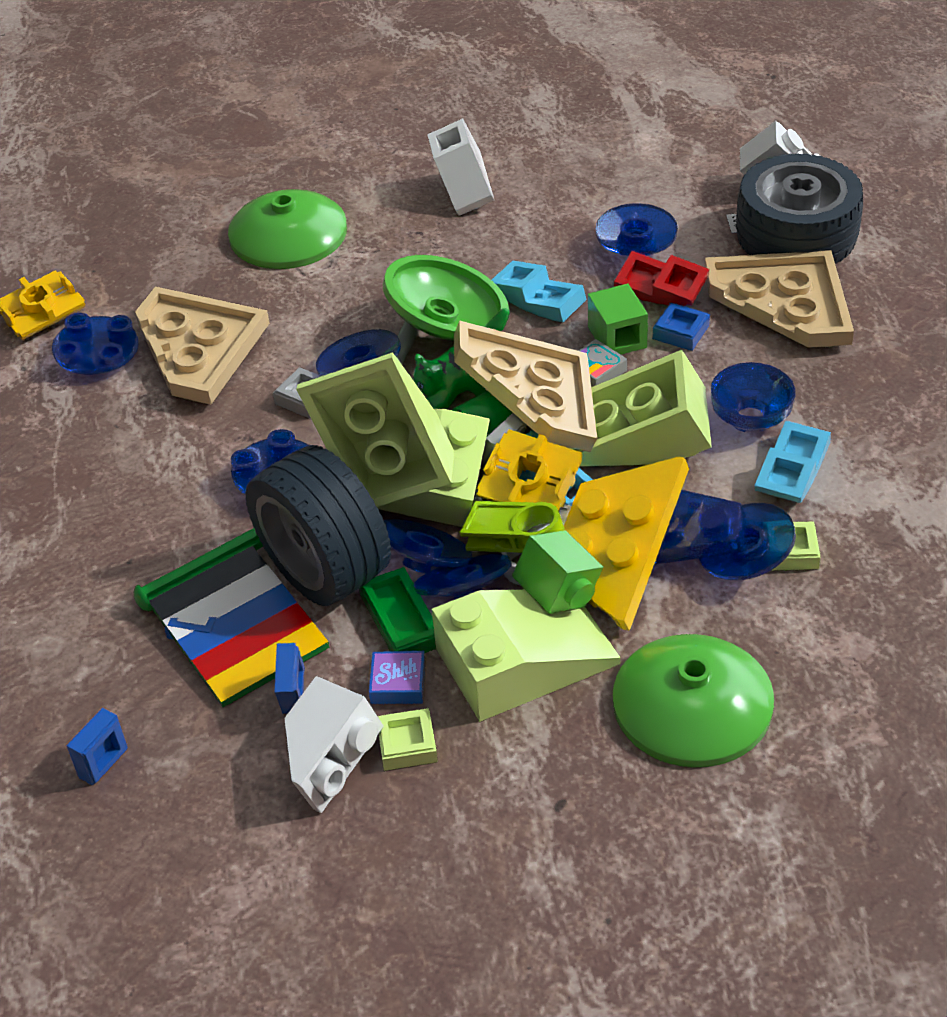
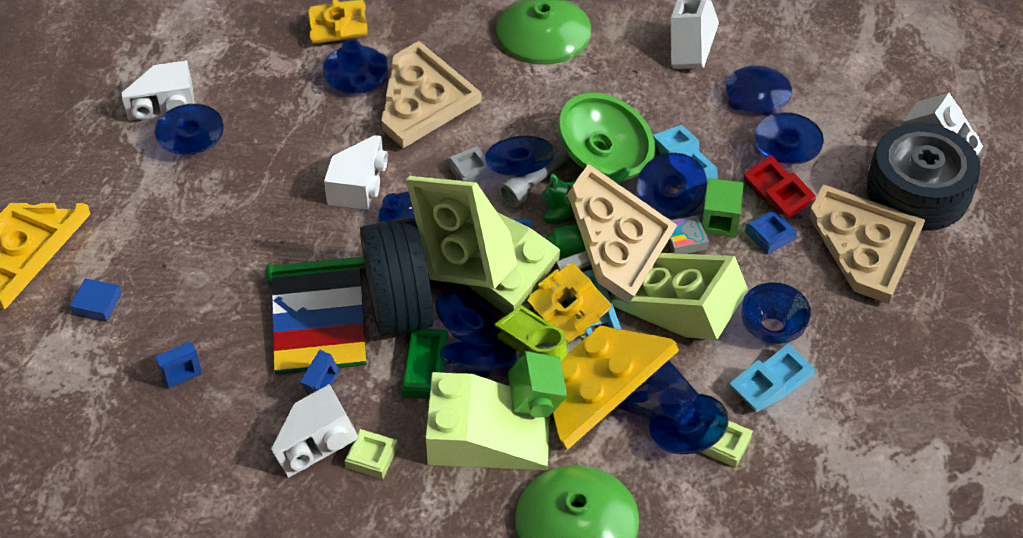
camera: 25 degrees right, 5 degrees up
(175, 452) = (355, 174): none -> white slope
(397, 677) = (393, 408): tile -> none
(551, 303) = (668, 172): none -> clear blue dish
(566, 200) = (758, 90): none -> clear blue dish

